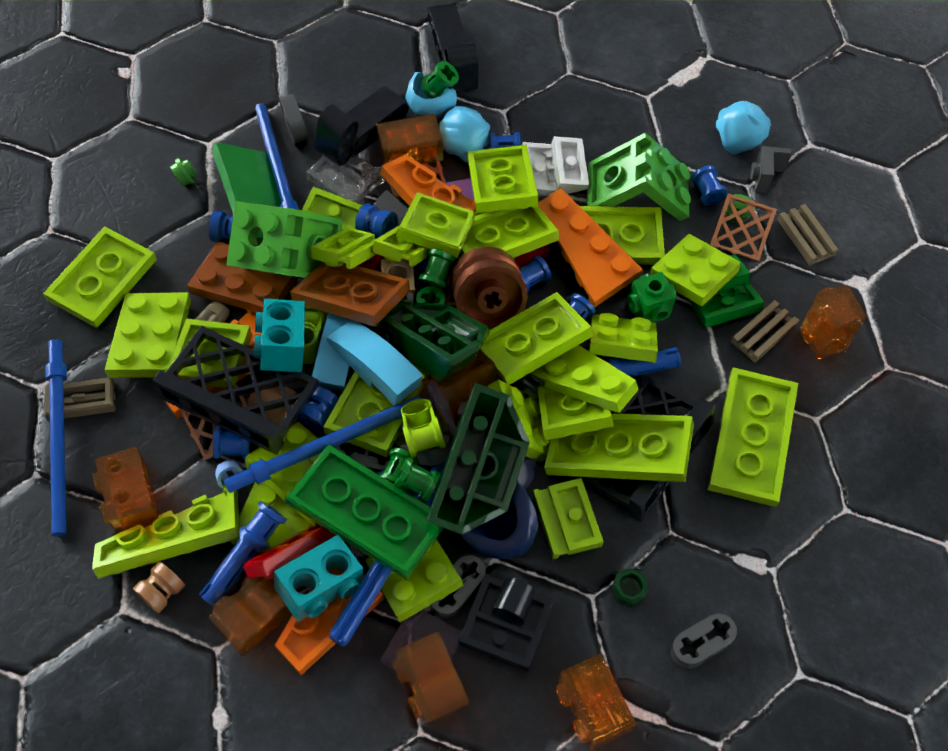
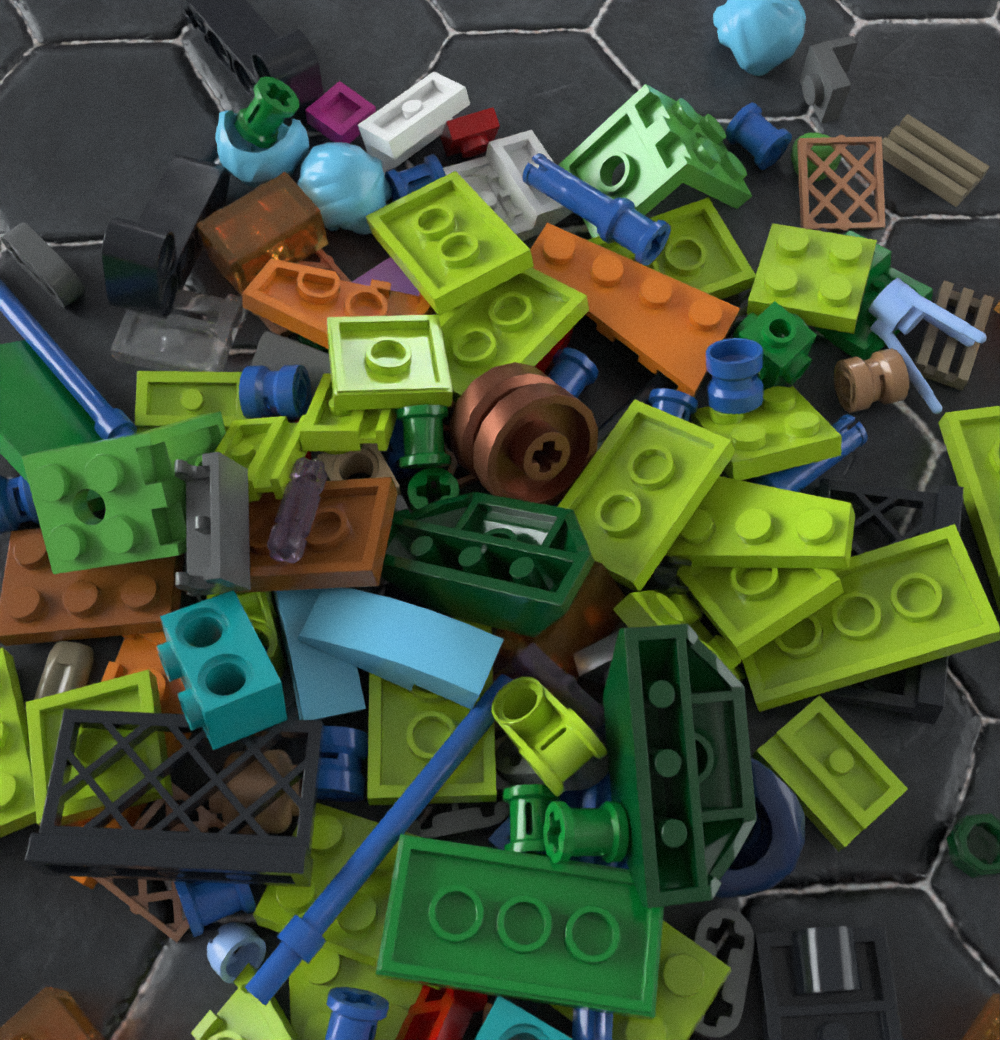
camera: 25 degrees left, 5 degrees up
(310, 267) = (215, 526): none -> dark grey hinge
(353, 276) = (297, 510): none -> axle
(483, 95) = (339, 113): none -> dark pink plate
(517, 111) = (412, 119): none -> white panel
(546, 128) = (470, 133): none -> red plate
(597, 198) = (614, 218): none -> blue pin
(619, 301) = (734, 379): none -> blue wheel
(700, 335) = (871, 380): none -> medium nougat wheel
(735, 303) = (902, 309): none -> light blue plant

